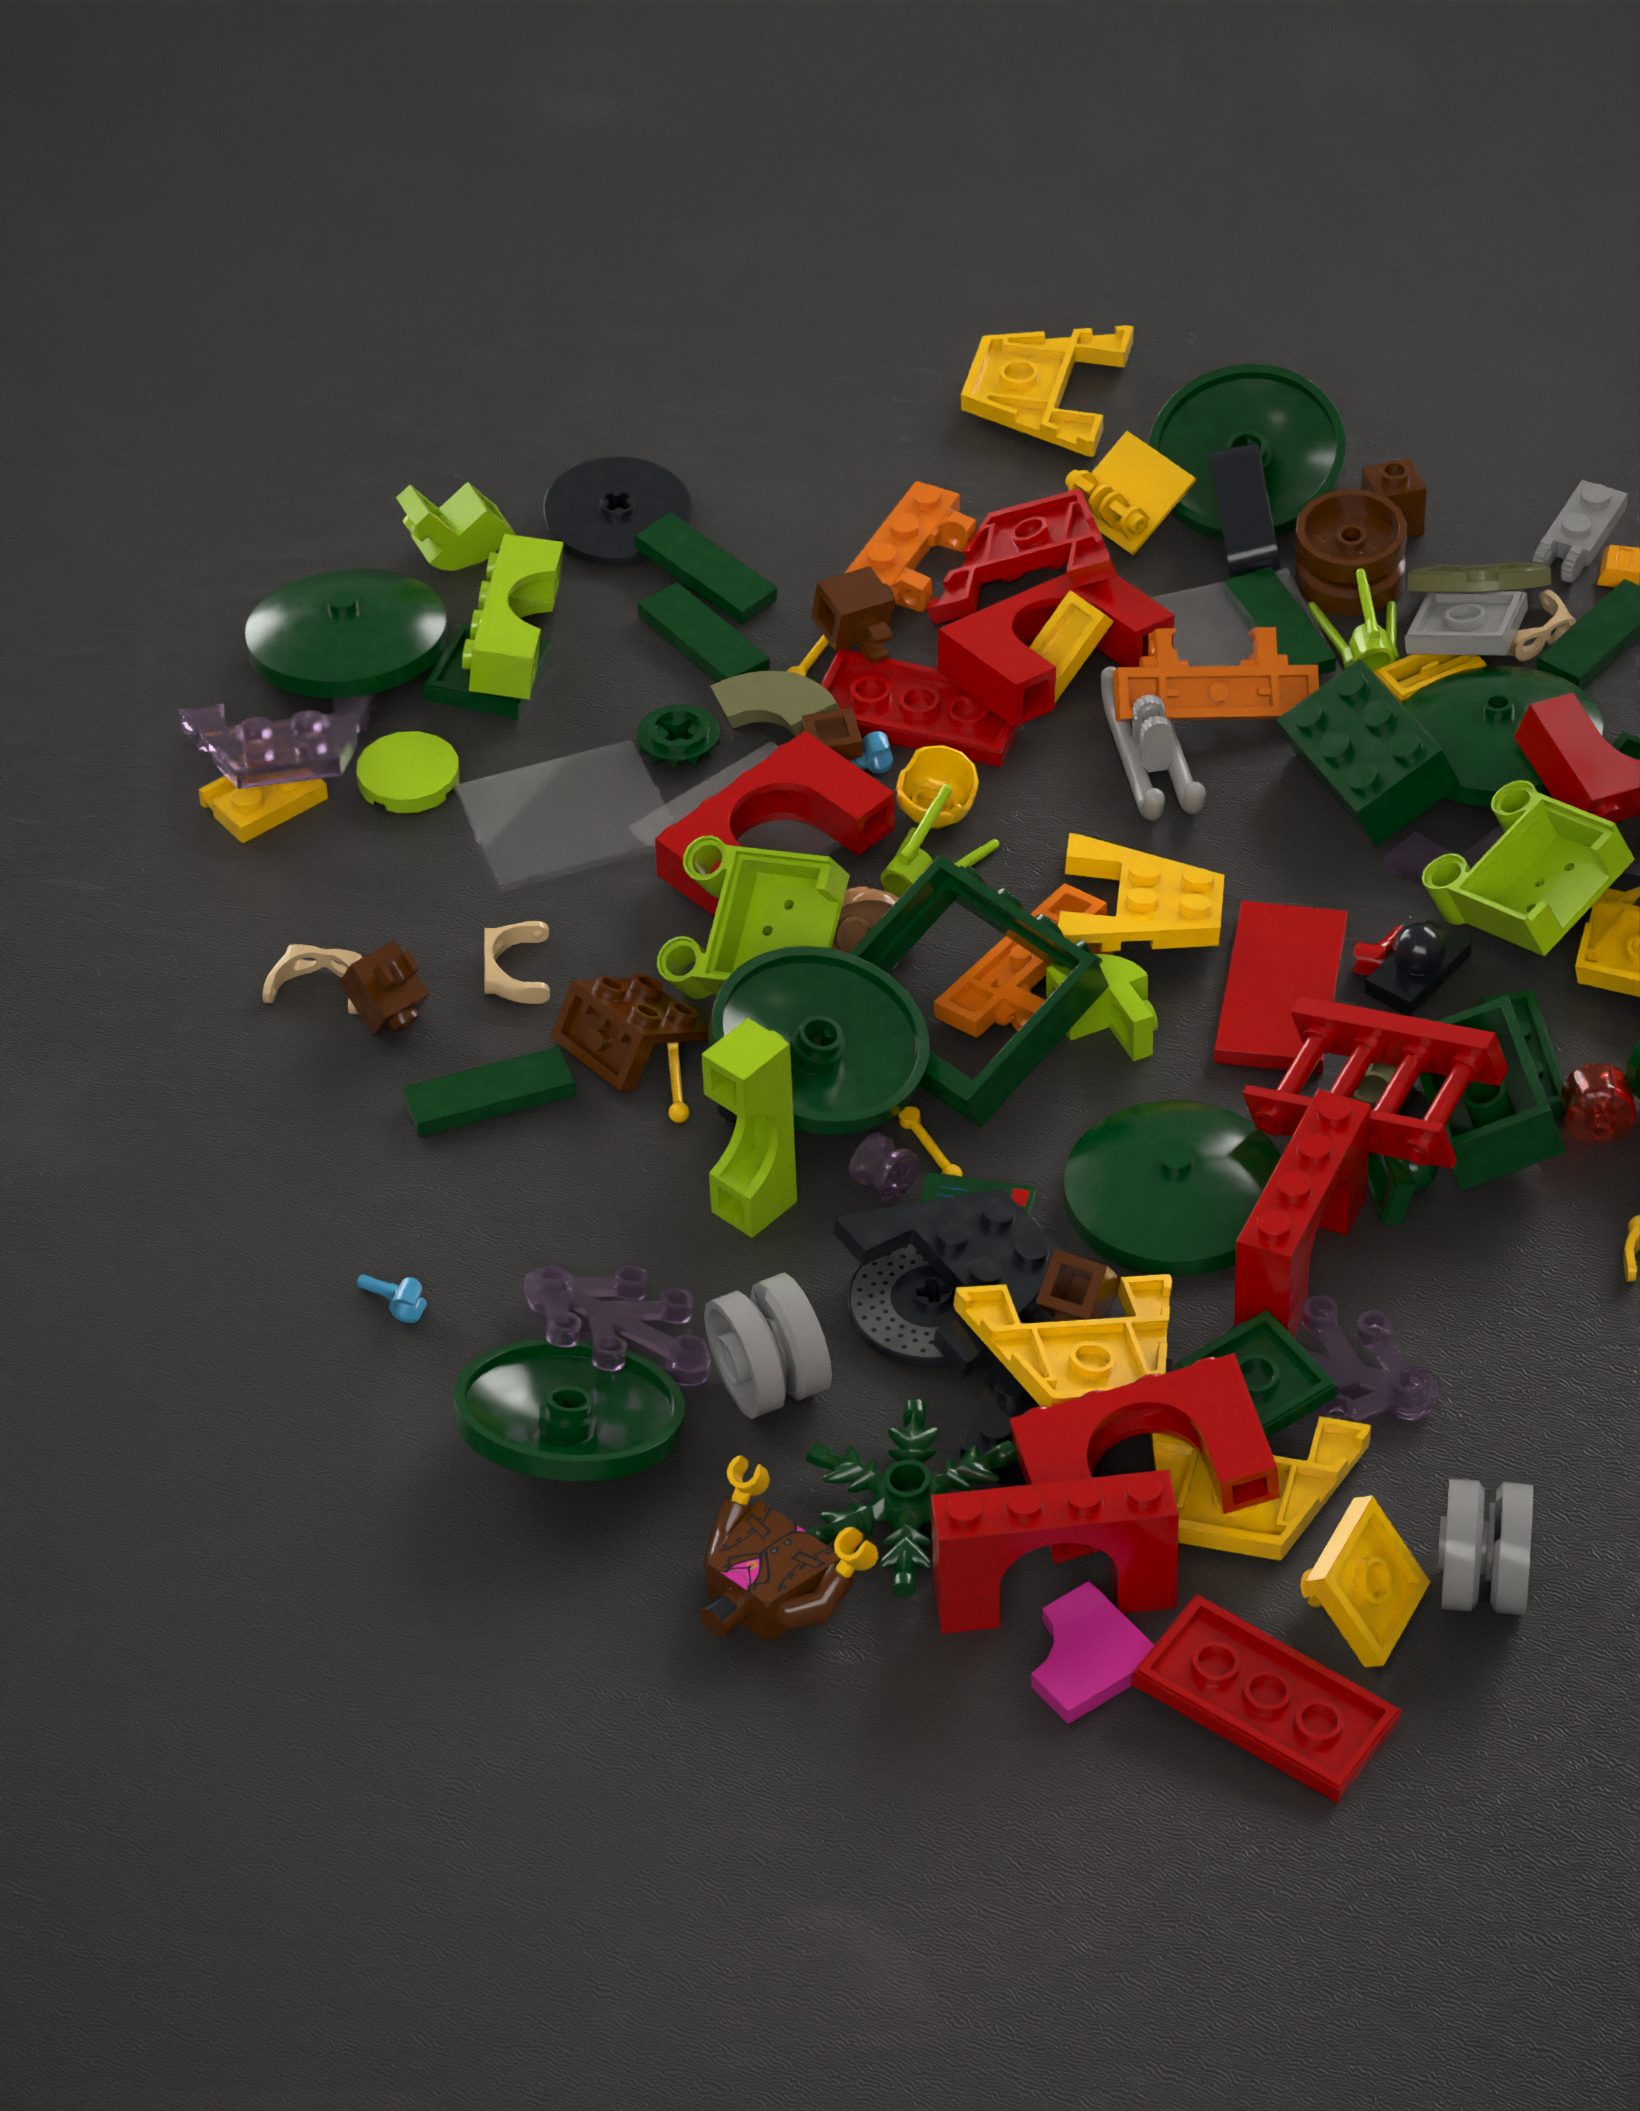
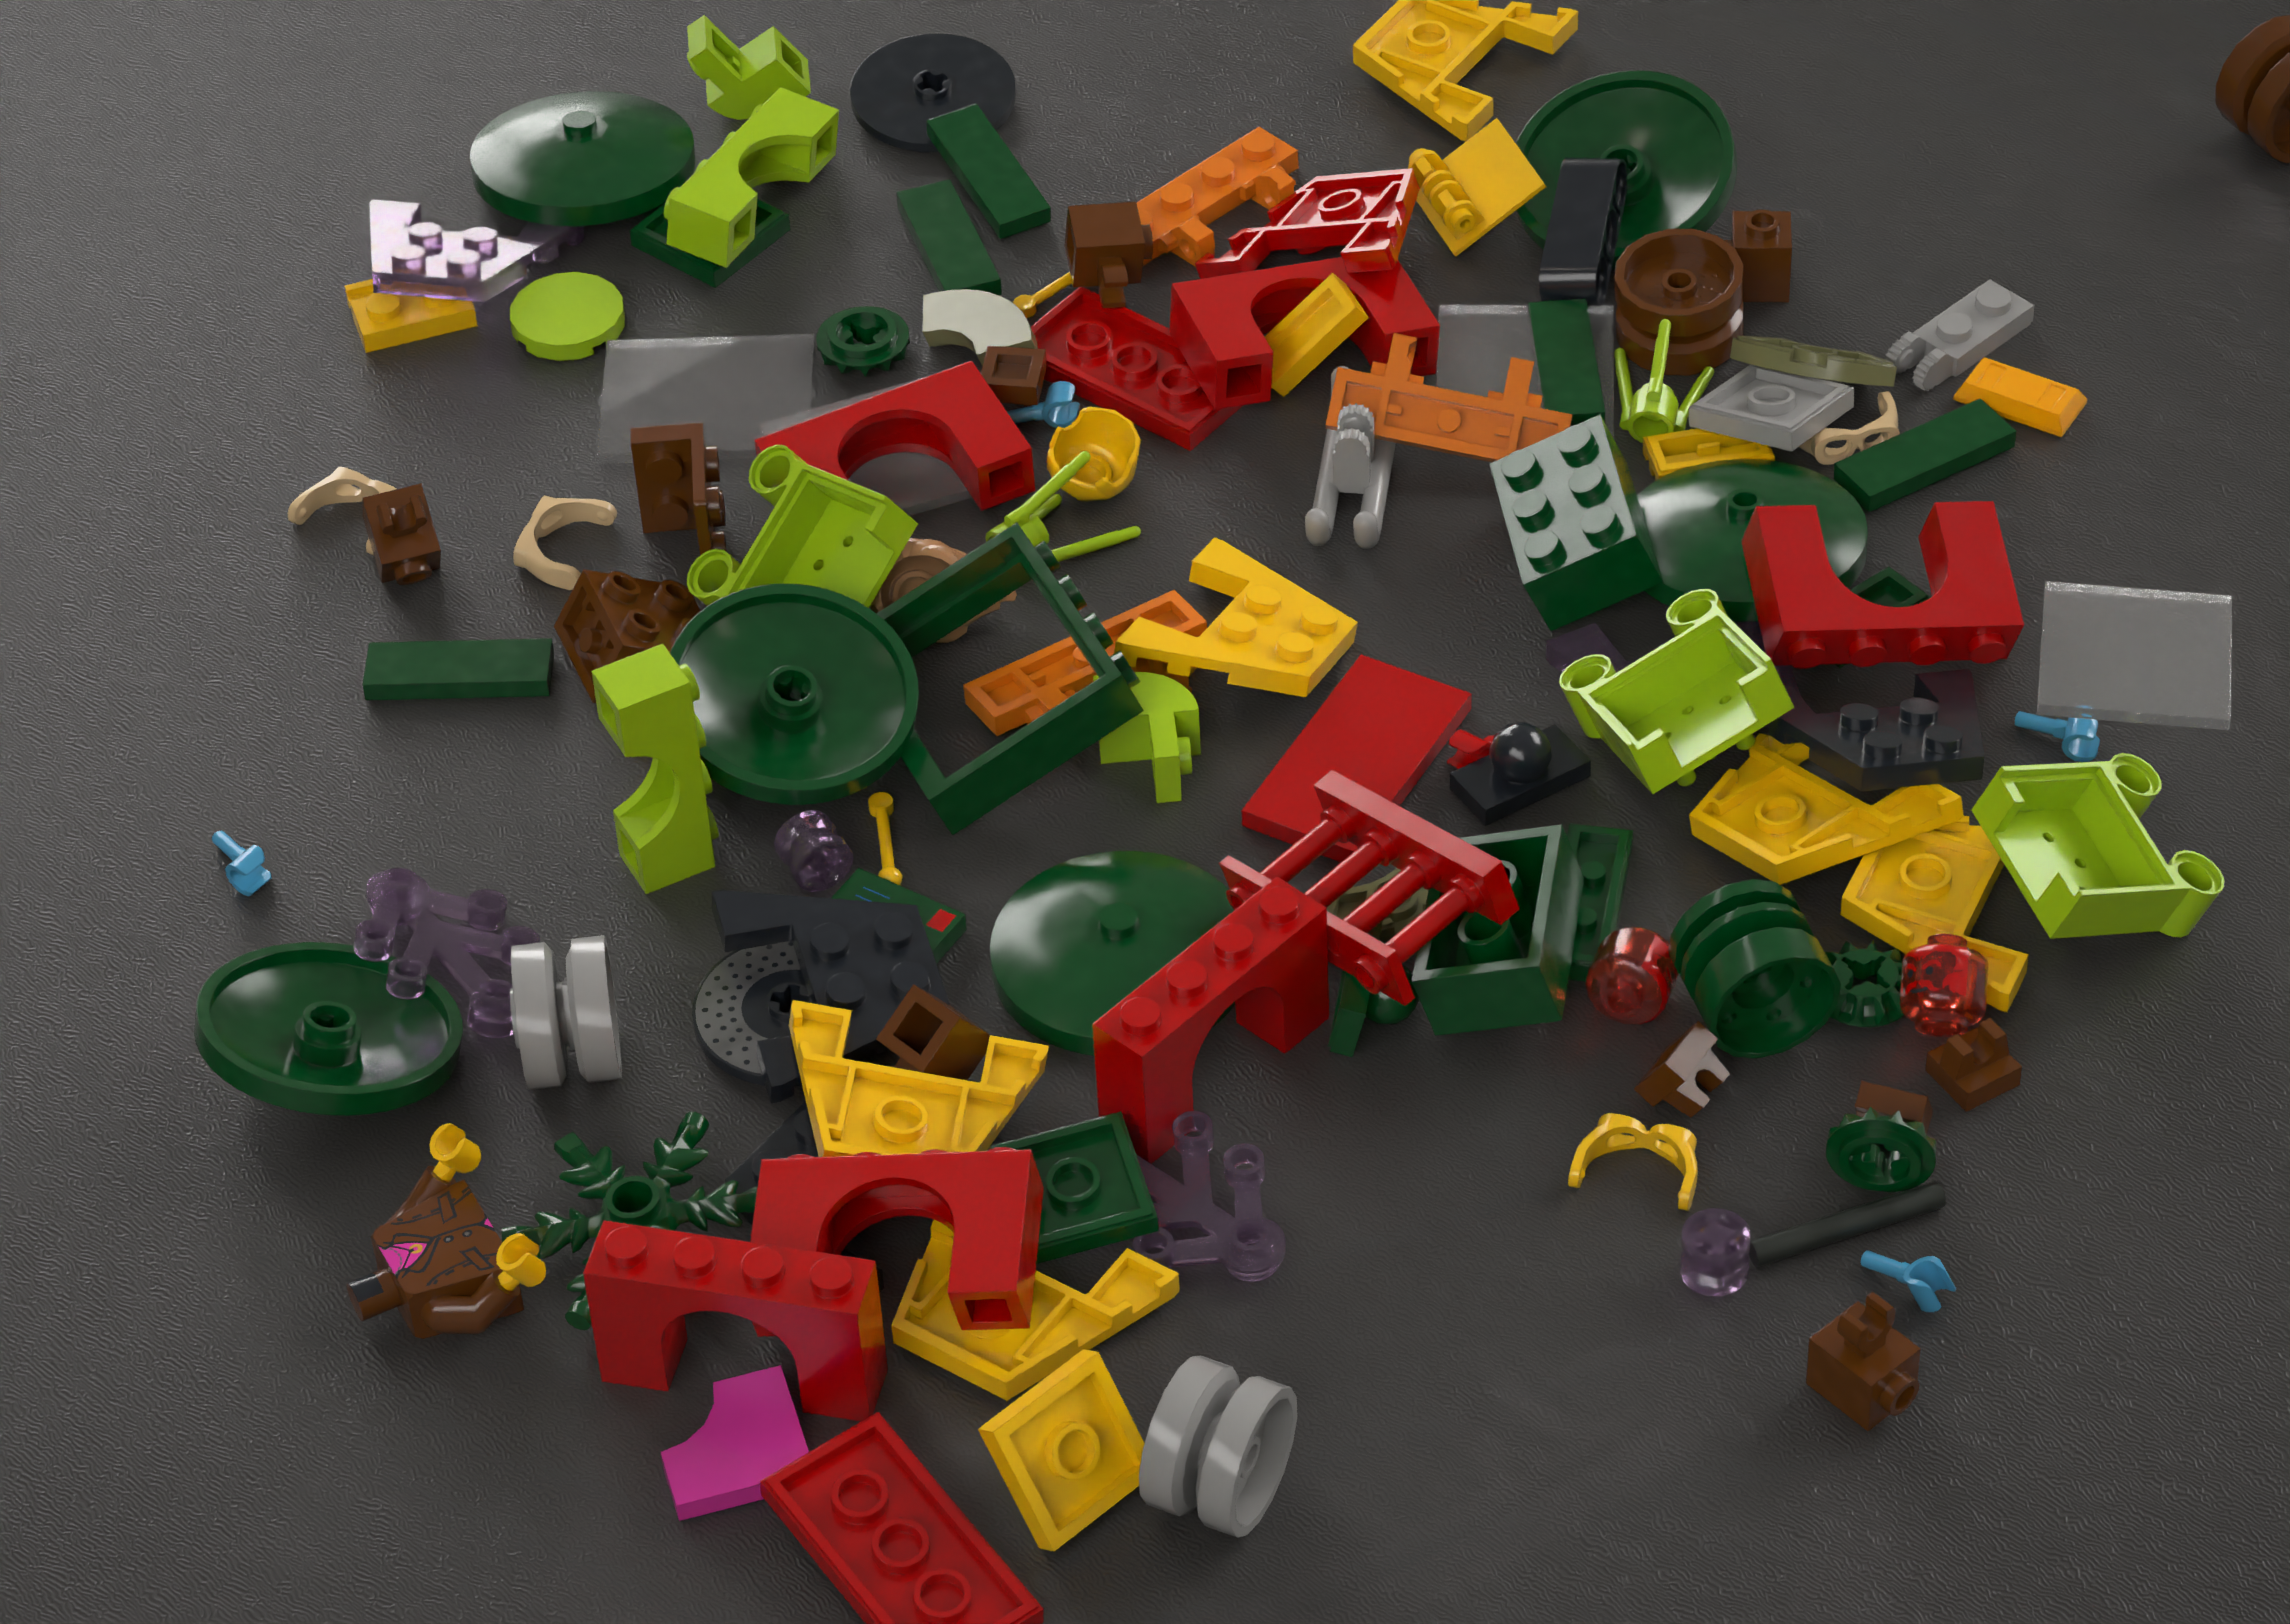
camera: 20 degrees right, 0 degrees up
(612, 889) = (675, 482): none -> reddish brown bracket

